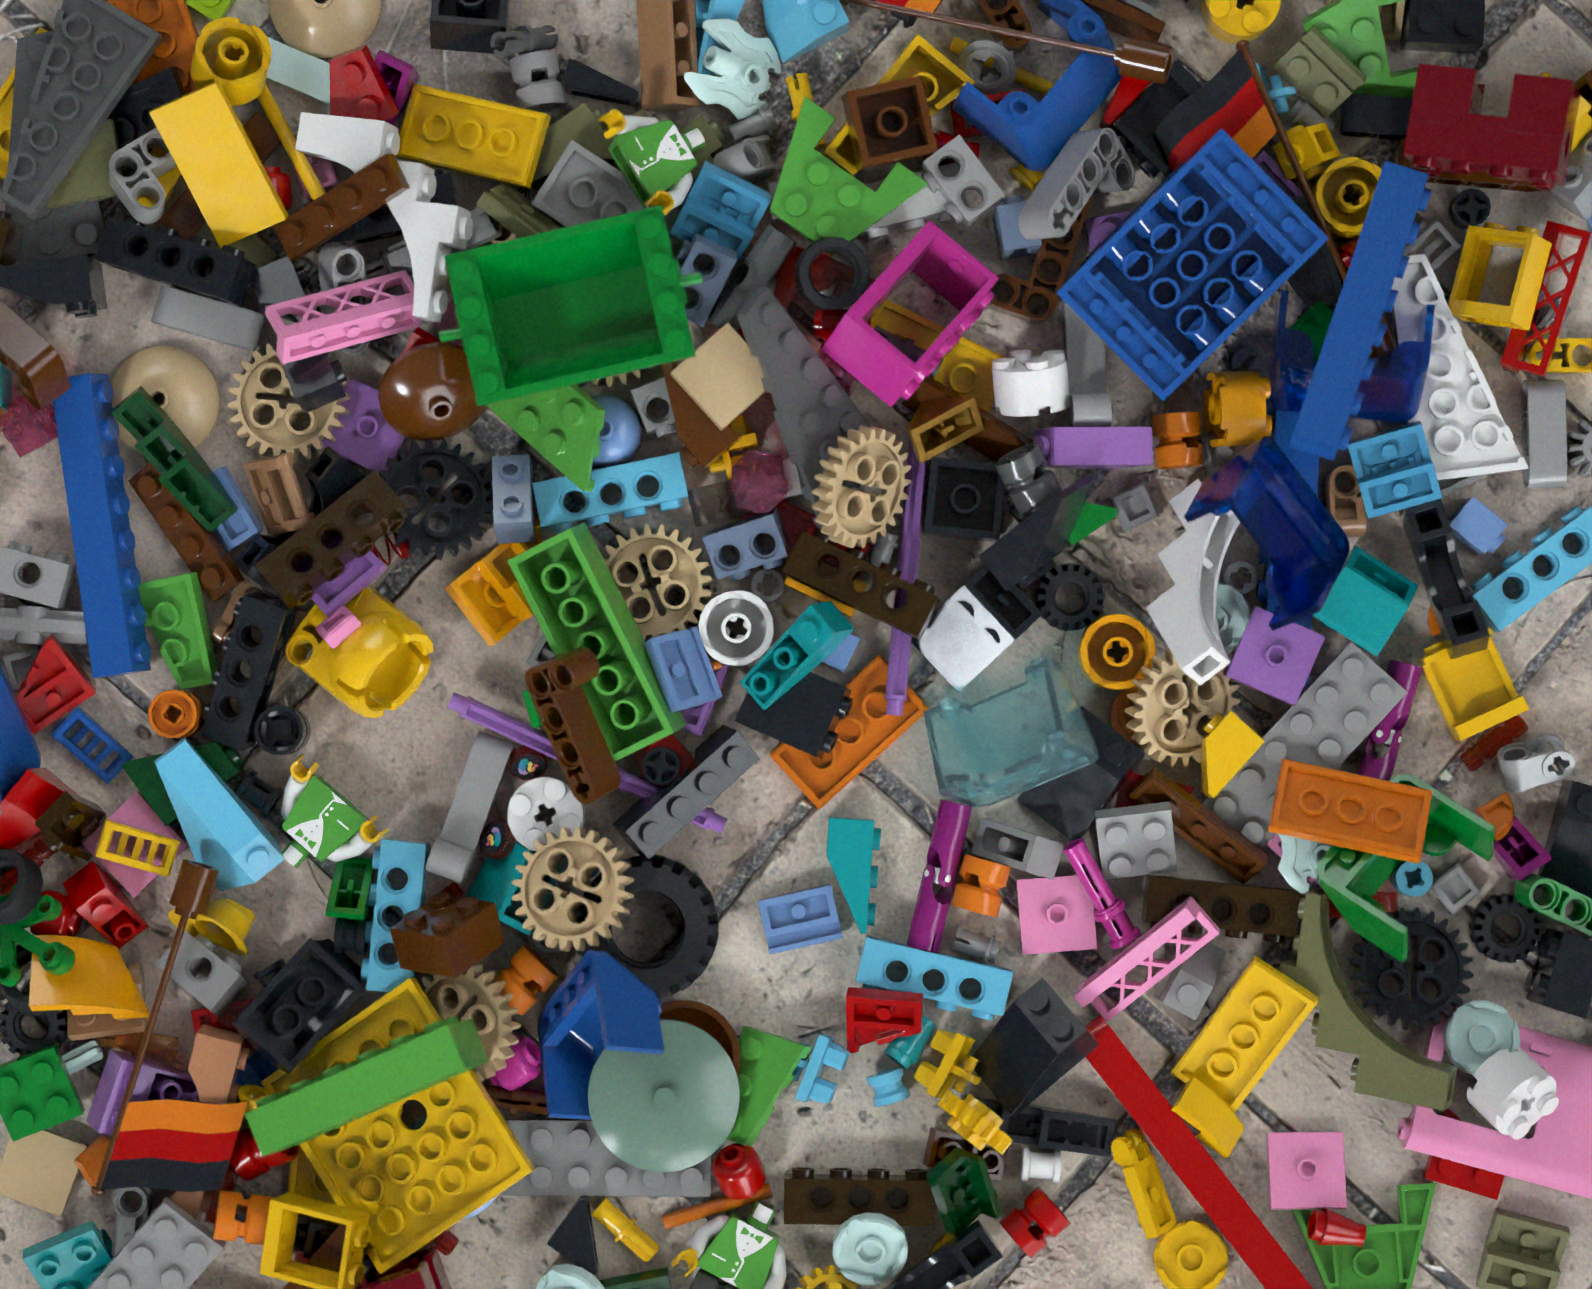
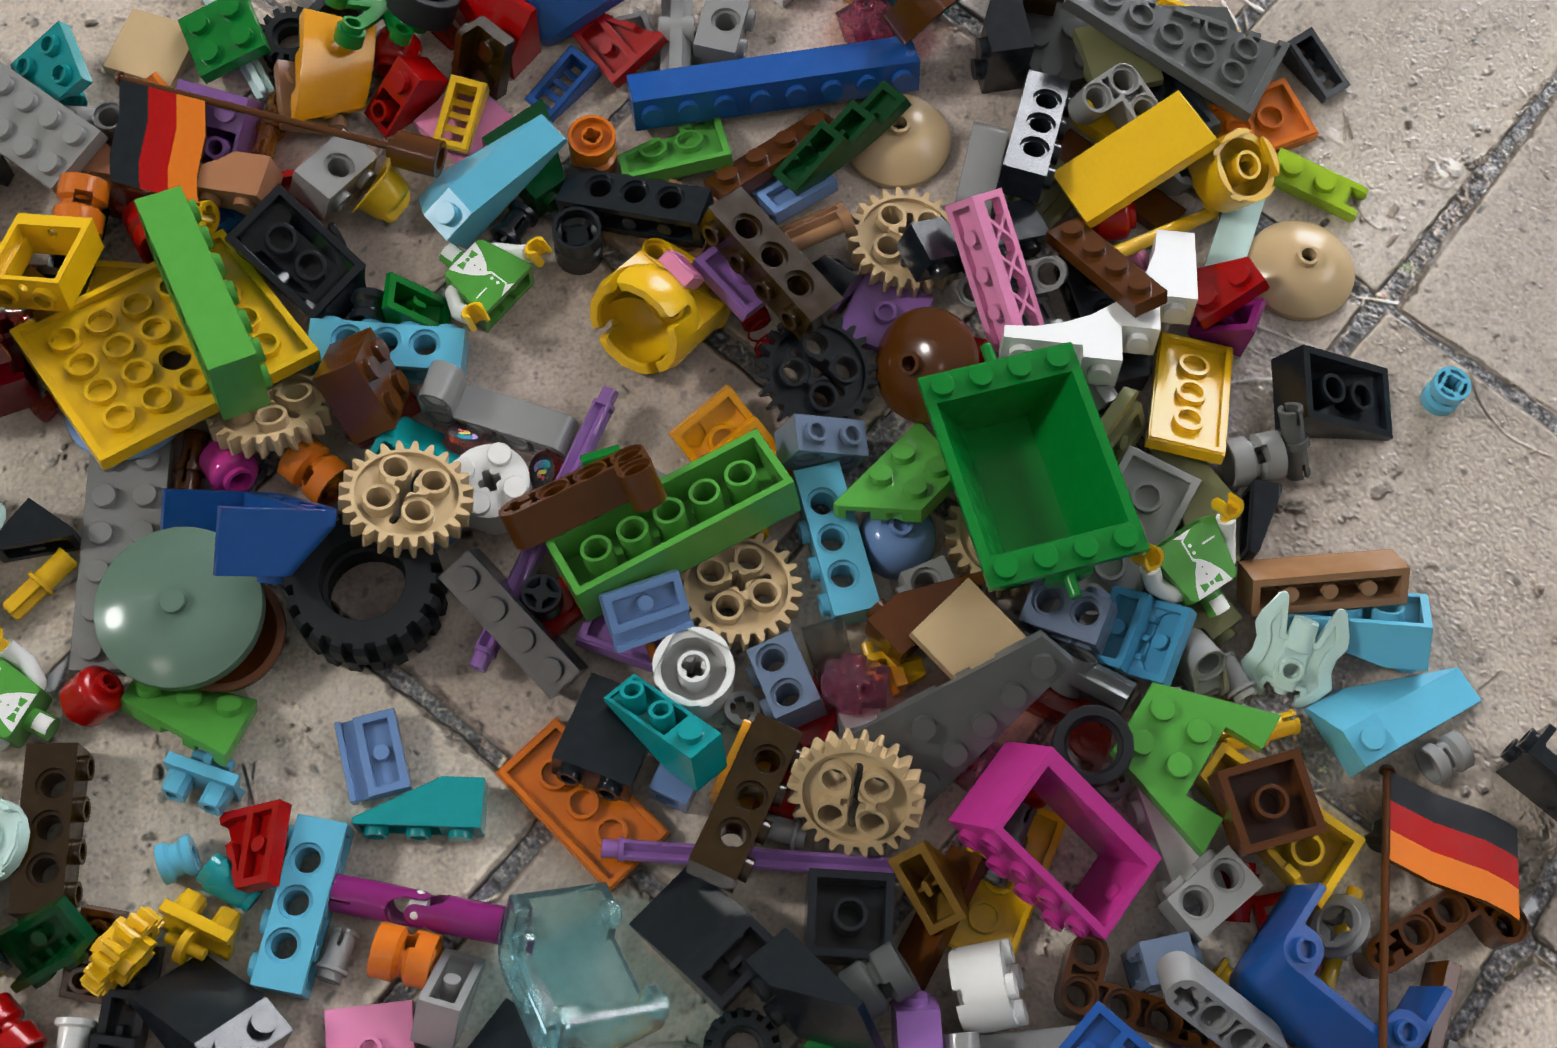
camera: 80 degrees right, 20 degrees down
(712, 1208) = (57, 675): orange bar -> none

